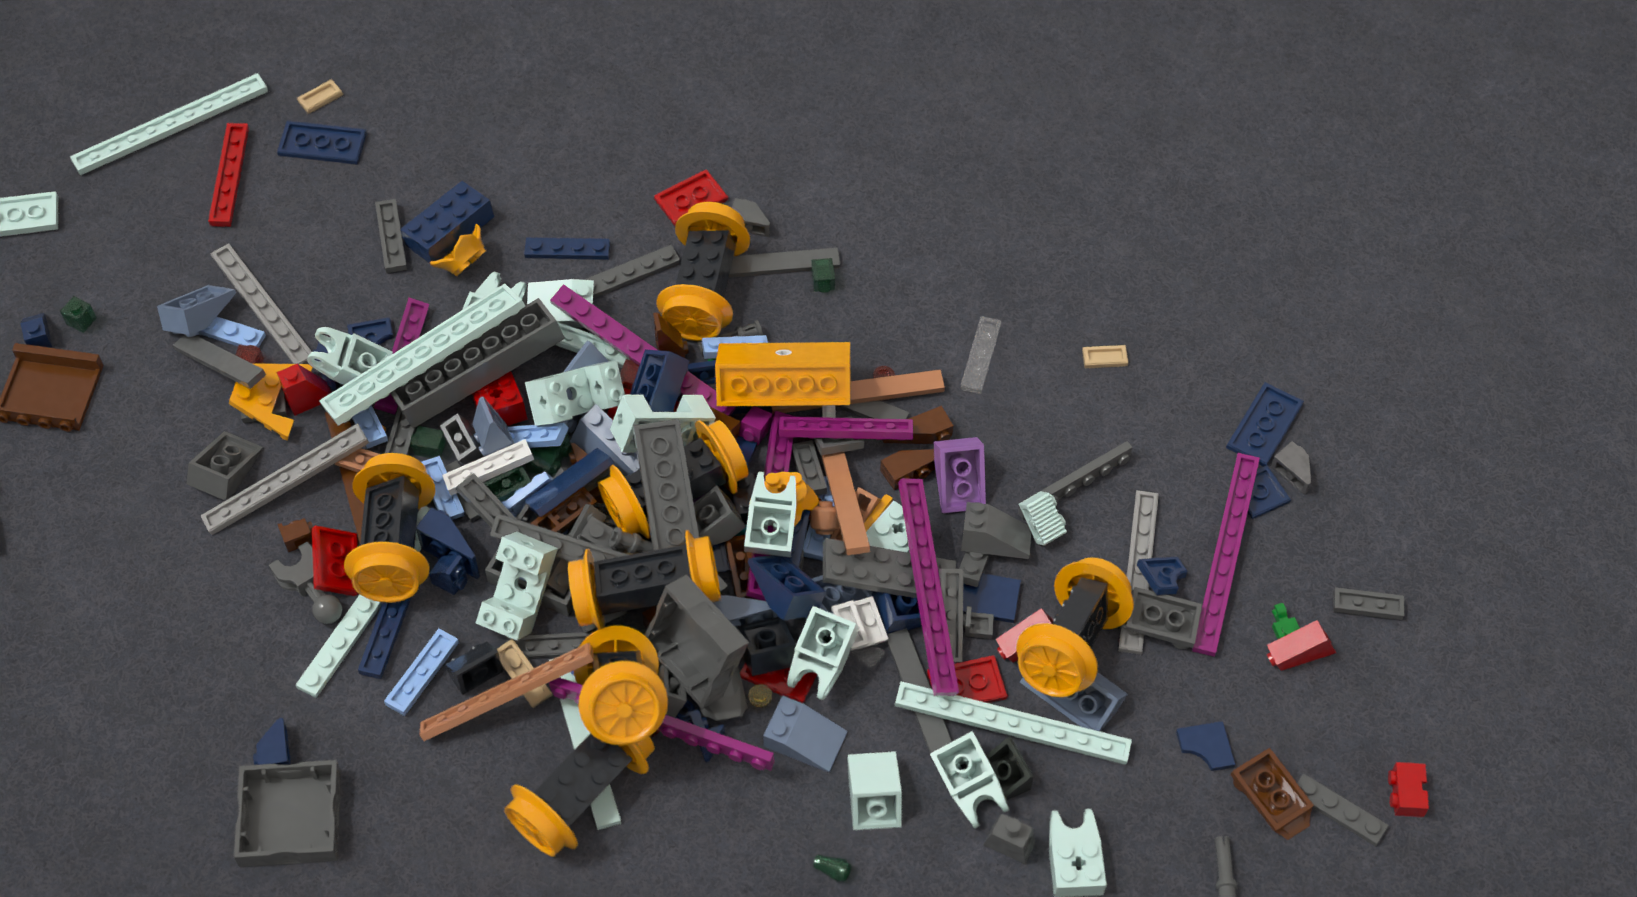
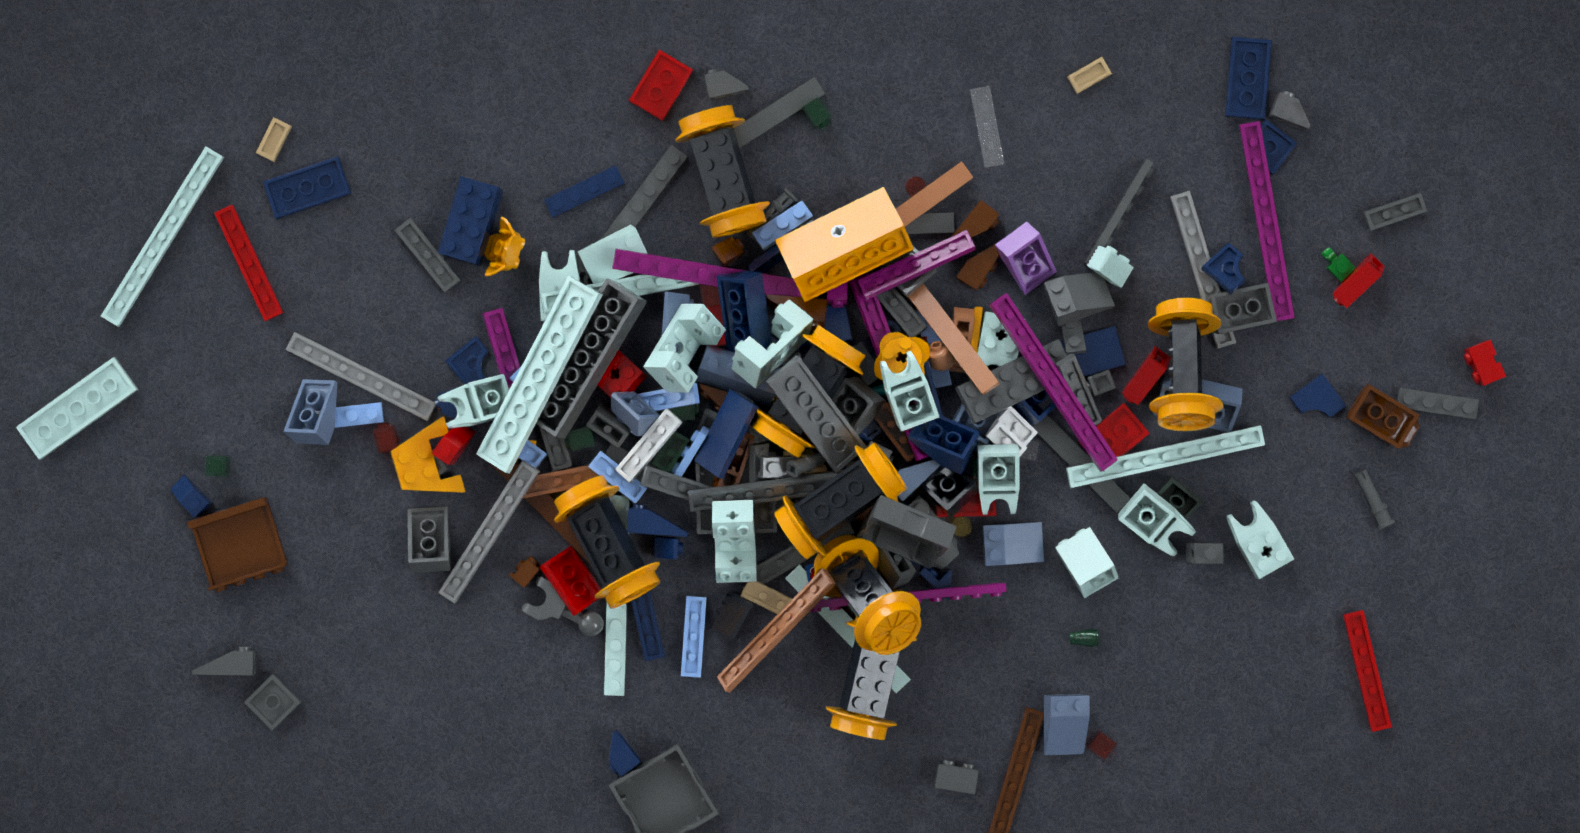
camera: 25 degrees left, 30 degrees up
(220, 360) = (371, 456): dark grey tile -> none

